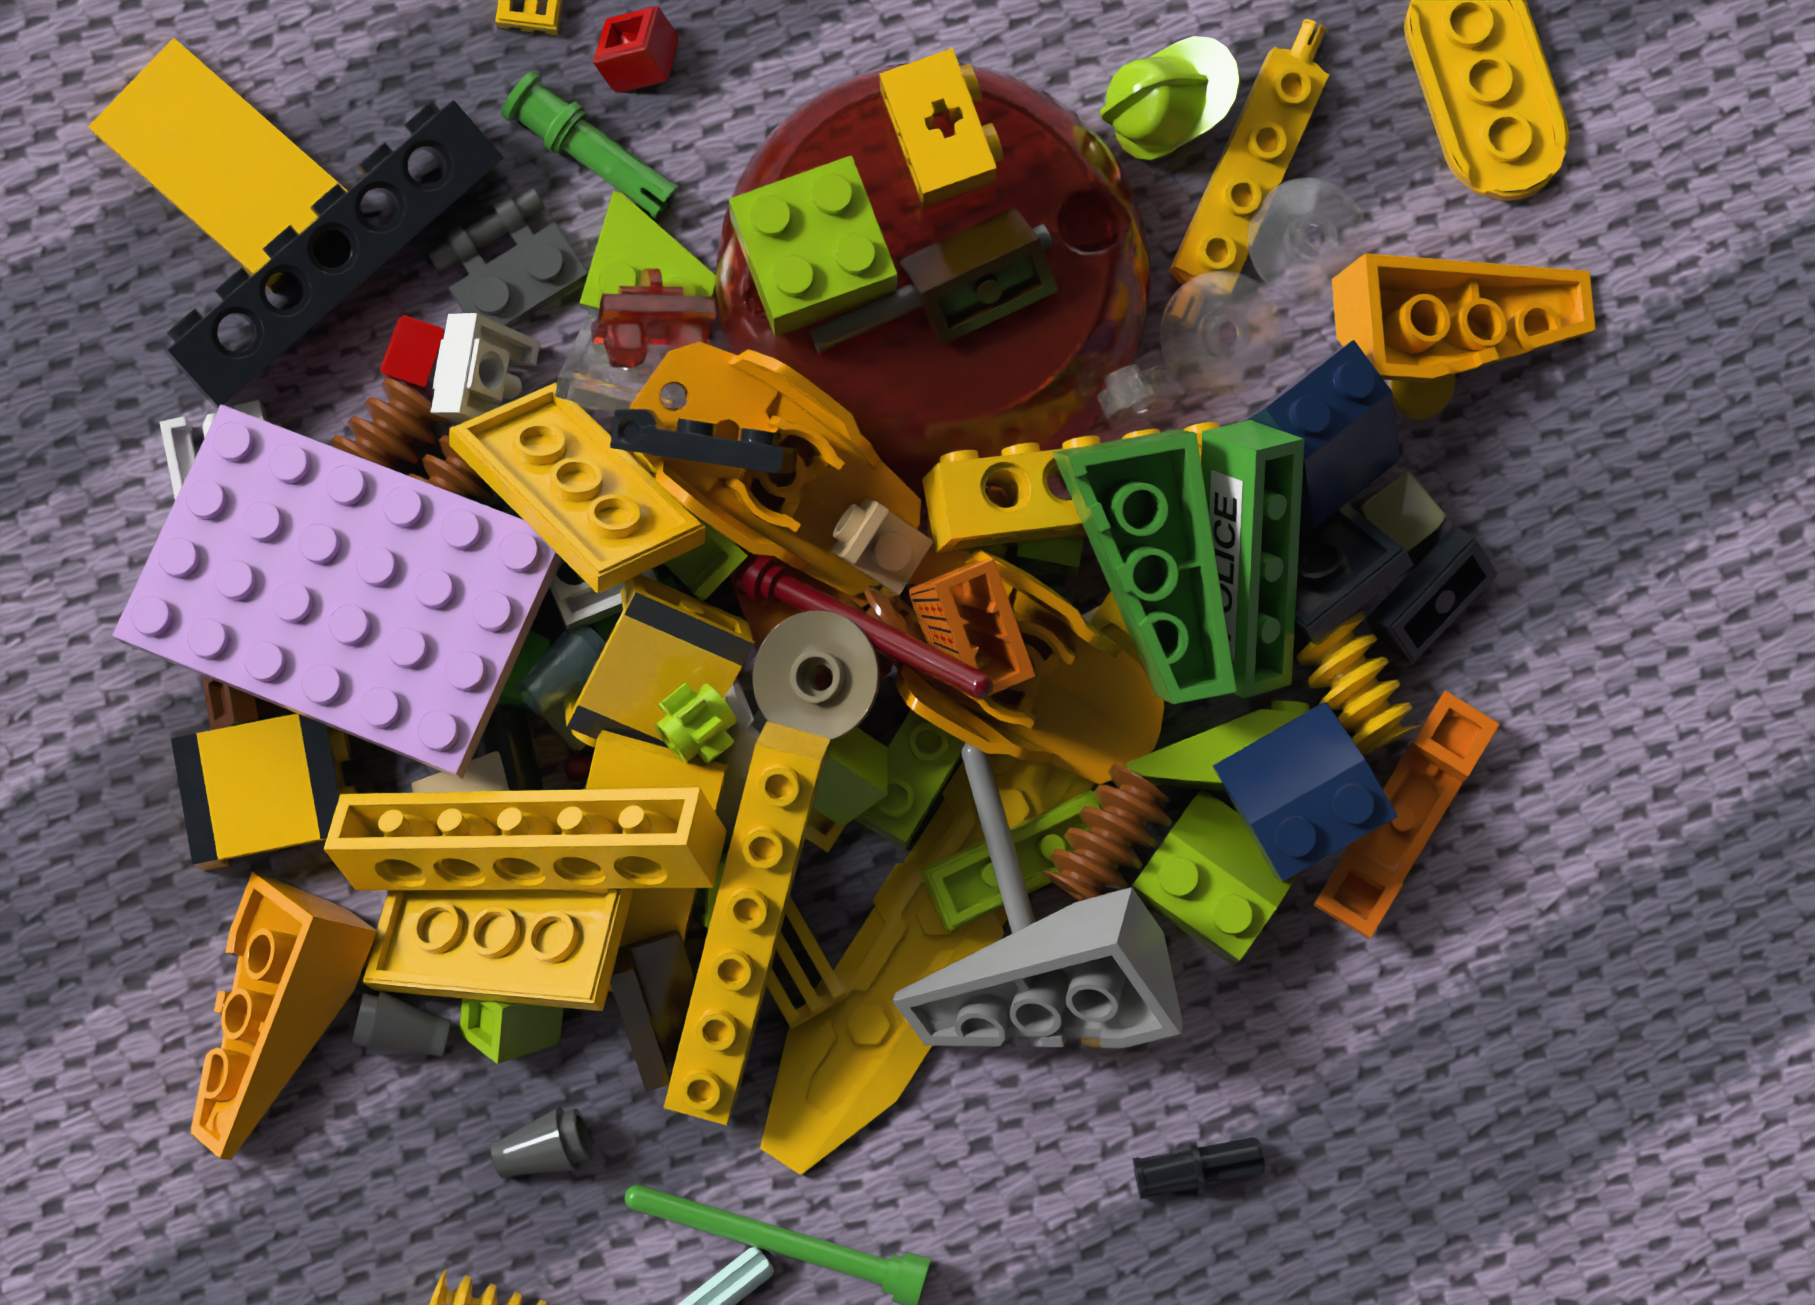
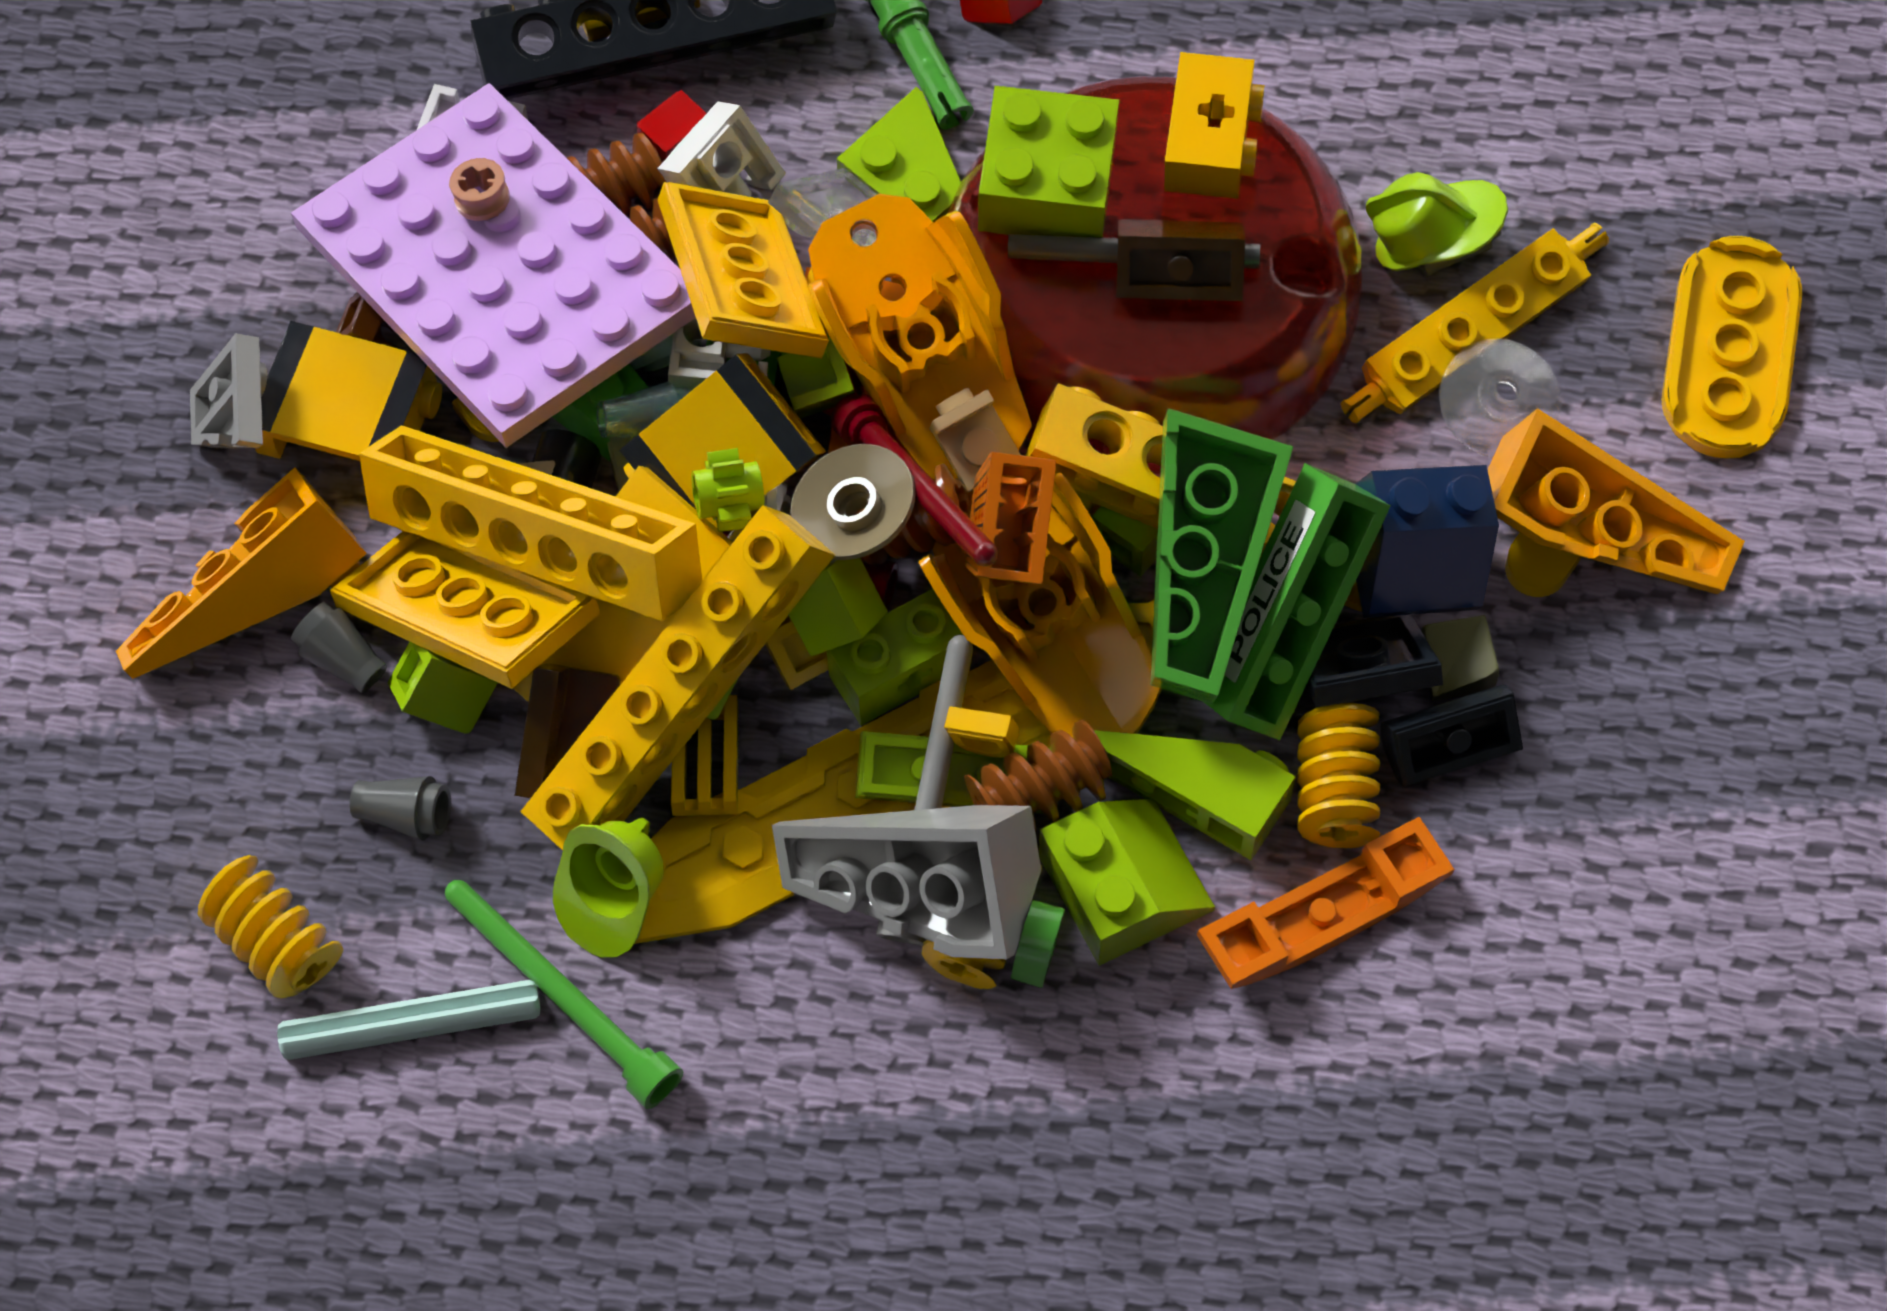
camera: 30 degrees right, 15 degrees down
(162, 851) = (228, 397): none -> light grey wing
(291, 552) = (469, 200): none -> nougat bush
(520, 279) = (799, 120): dark grey plate -> none
(650, 317) = (870, 171): clear red hips -> none
(696, 441) = (863, 272): black hinge -> none
(777, 1131) = (606, 885): none -> lime piece
(1035, 822) = (982, 731): none -> yellow tile
(1139, 395) = (1276, 422): clear plate -> none
(1192, 333) = (1348, 421): clear dish -> none
(1192, 986) = (1037, 943): none -> bright green beam
(1198, 1167) = (967, 1115): black axle -> none
(1304, 791) = (1237, 826): dark blue slope -> none

